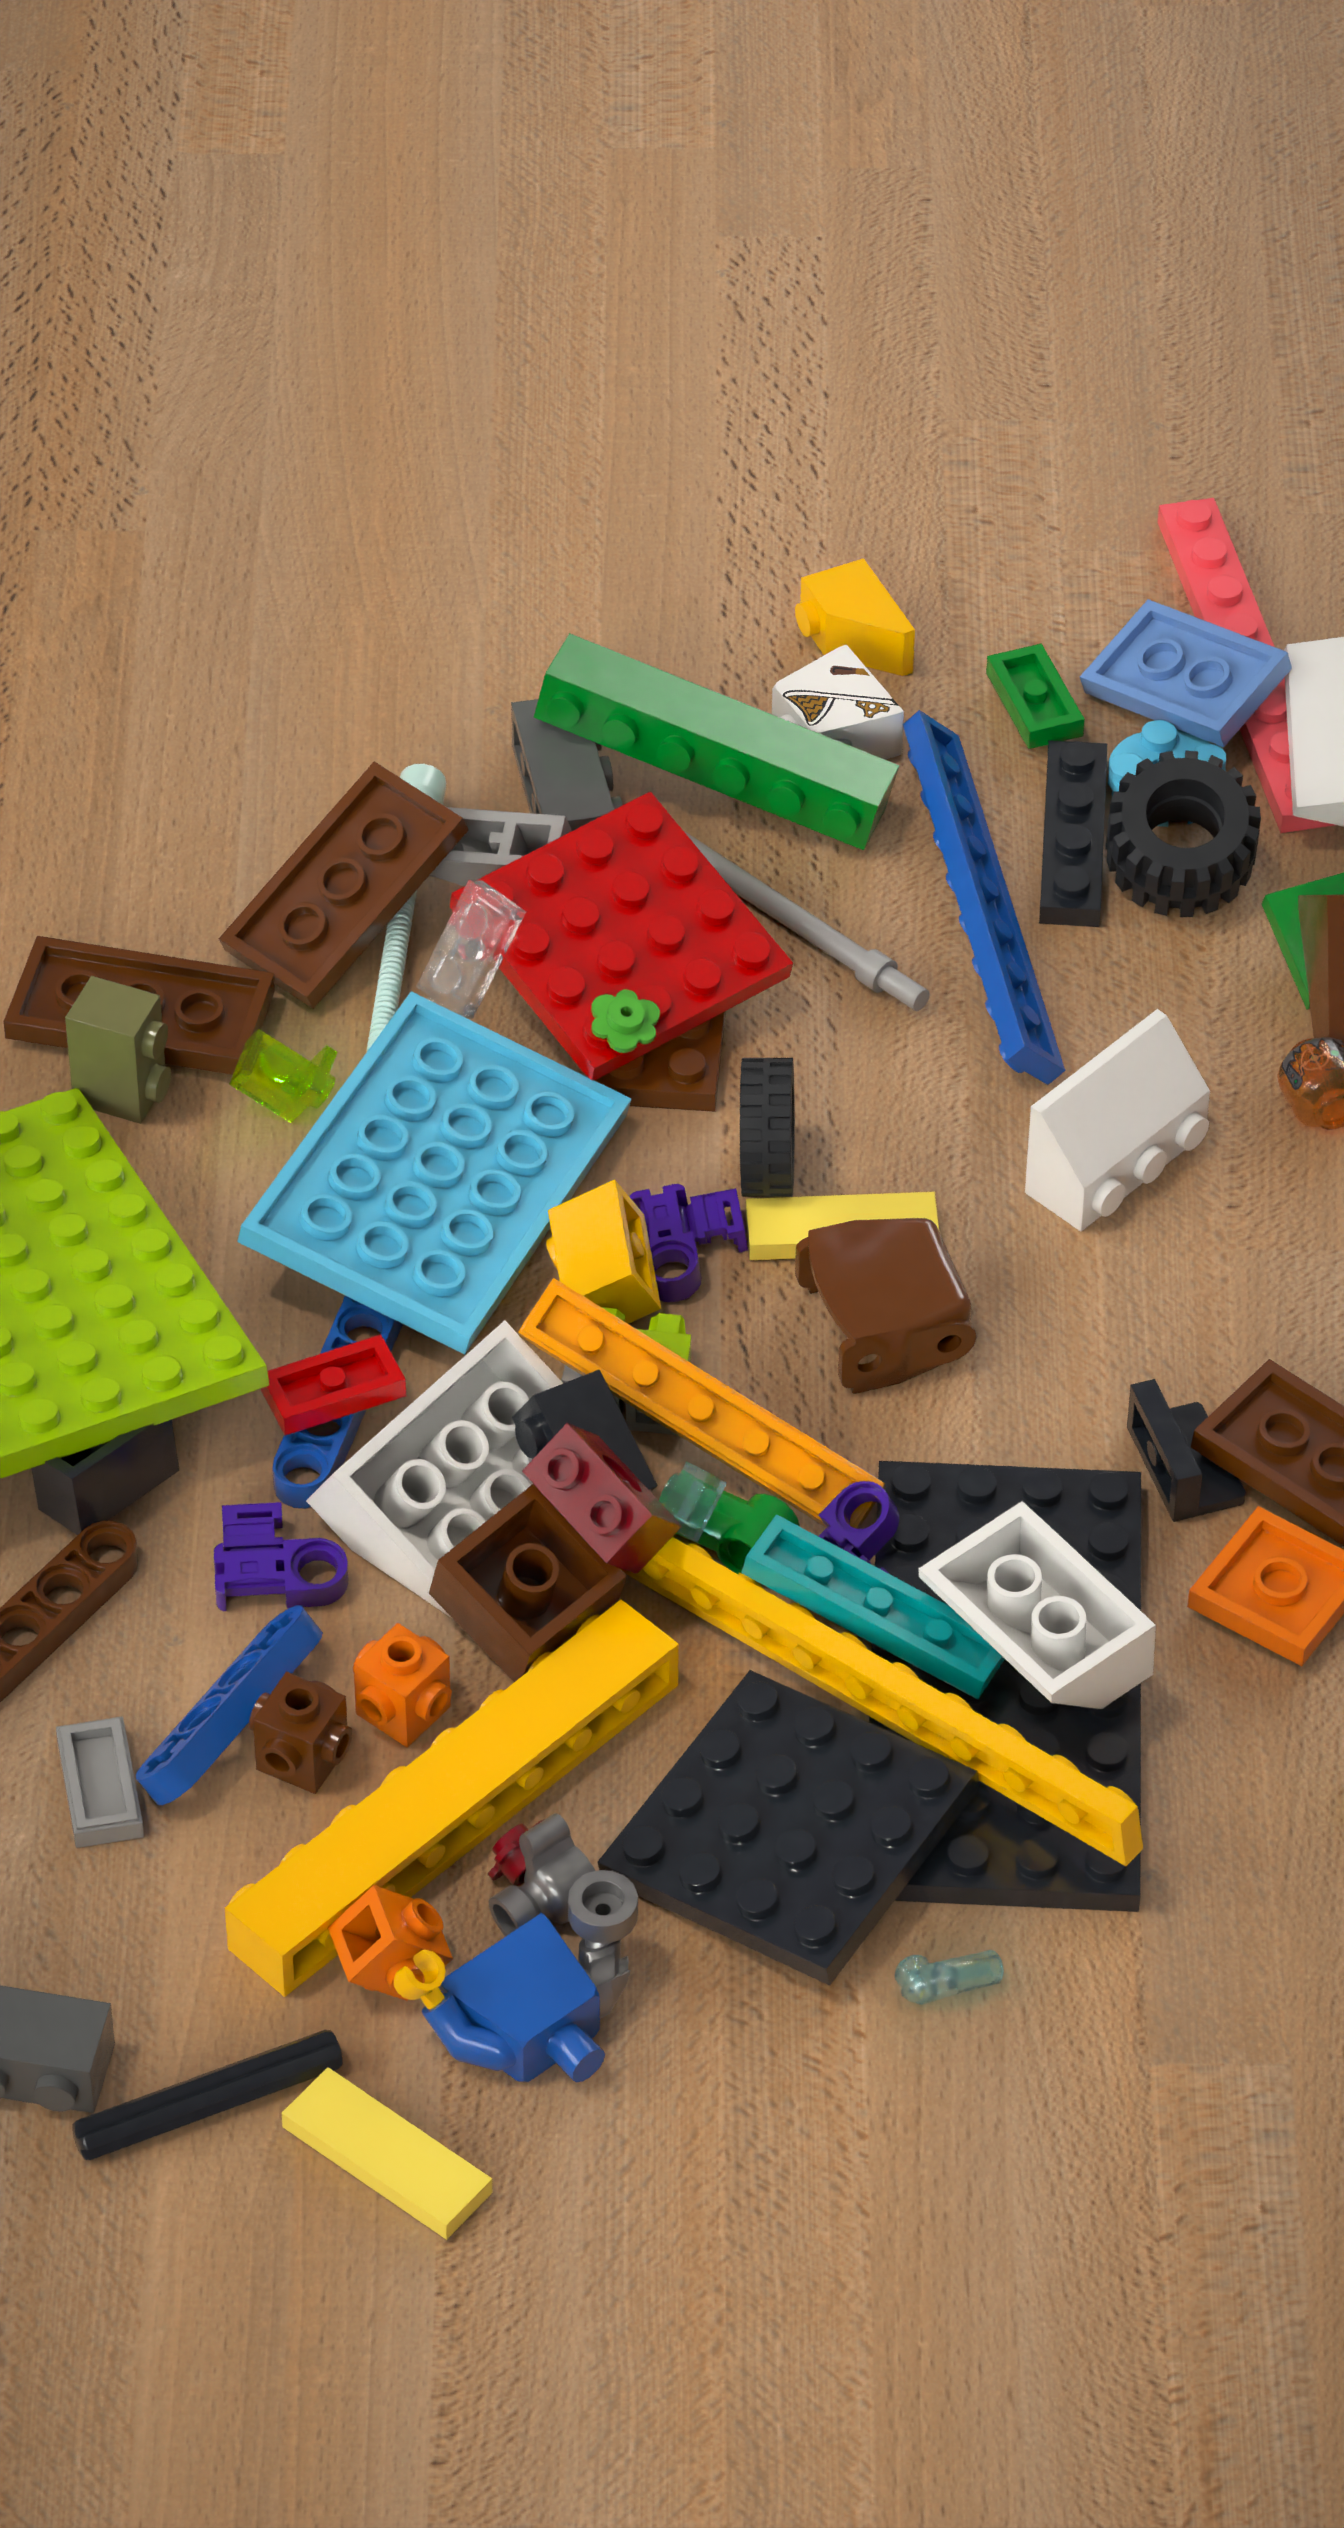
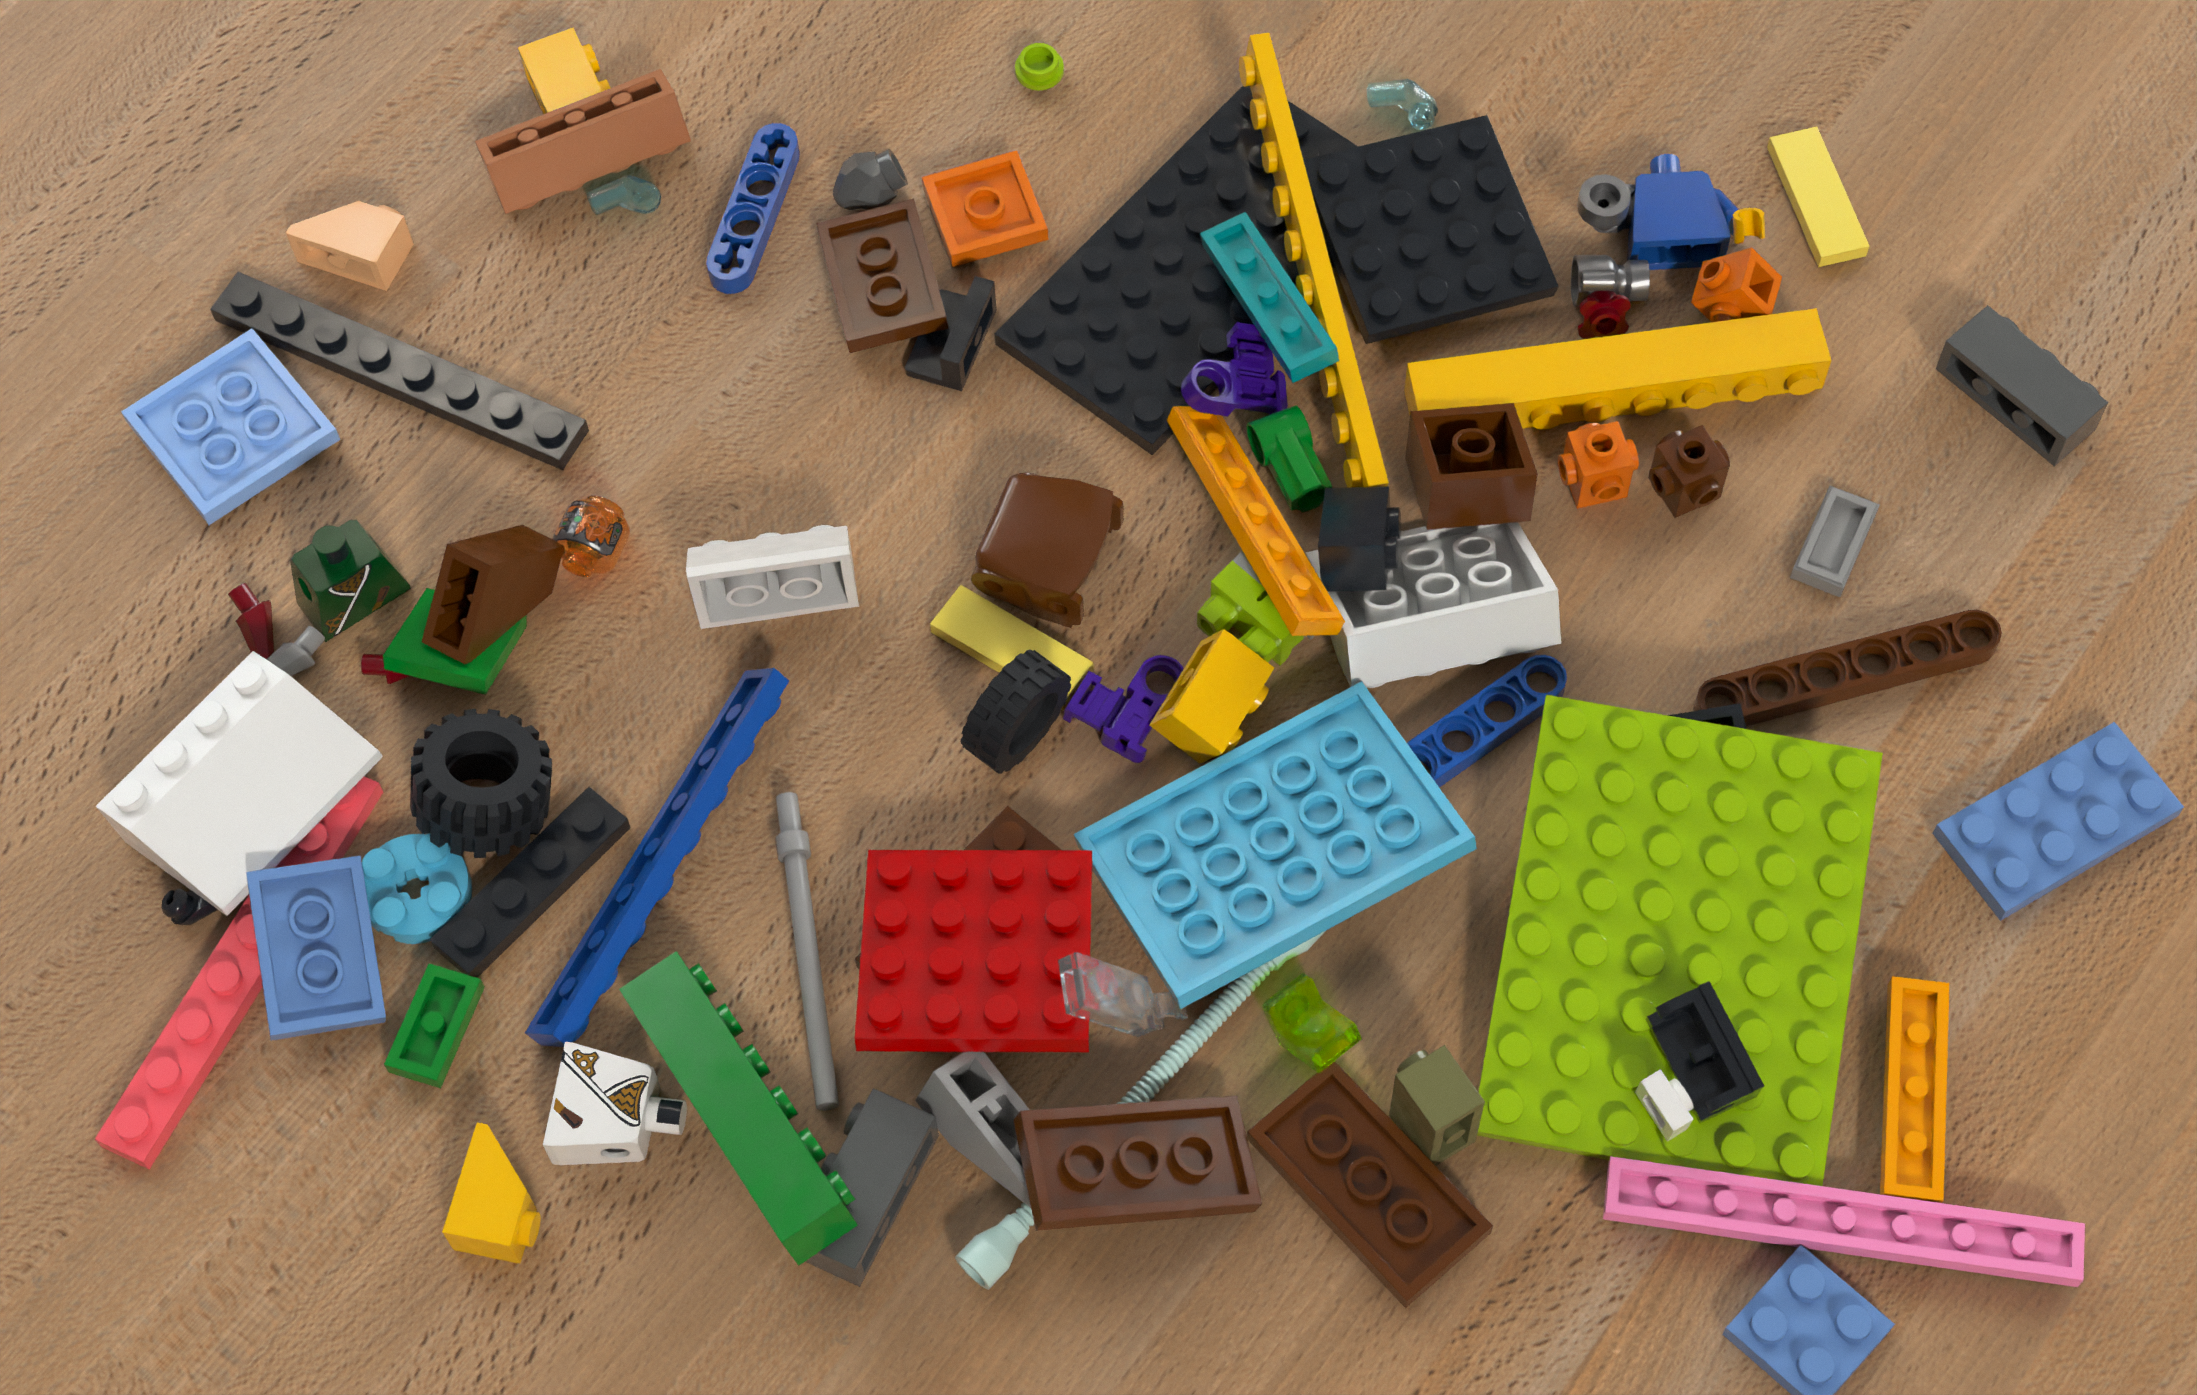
camera: 140 degrees left, 15 degrees up
(206, 2094) = (1901, 289): black axle -> none
(228, 1705) = (1719, 531): blue beam -> none
(265, 1565) = (1623, 629): dark purple piece -> none
(334, 1384) = (1485, 702): red plate -> none
(601, 1498) = (1396, 447): dark red brick -> none
(624, 1020) = (1044, 858): bright green plant -> none
(692, 1498) = (1323, 441): clear light blue plate -> none
(1045, 1610) = (1181, 218): white slope -> none

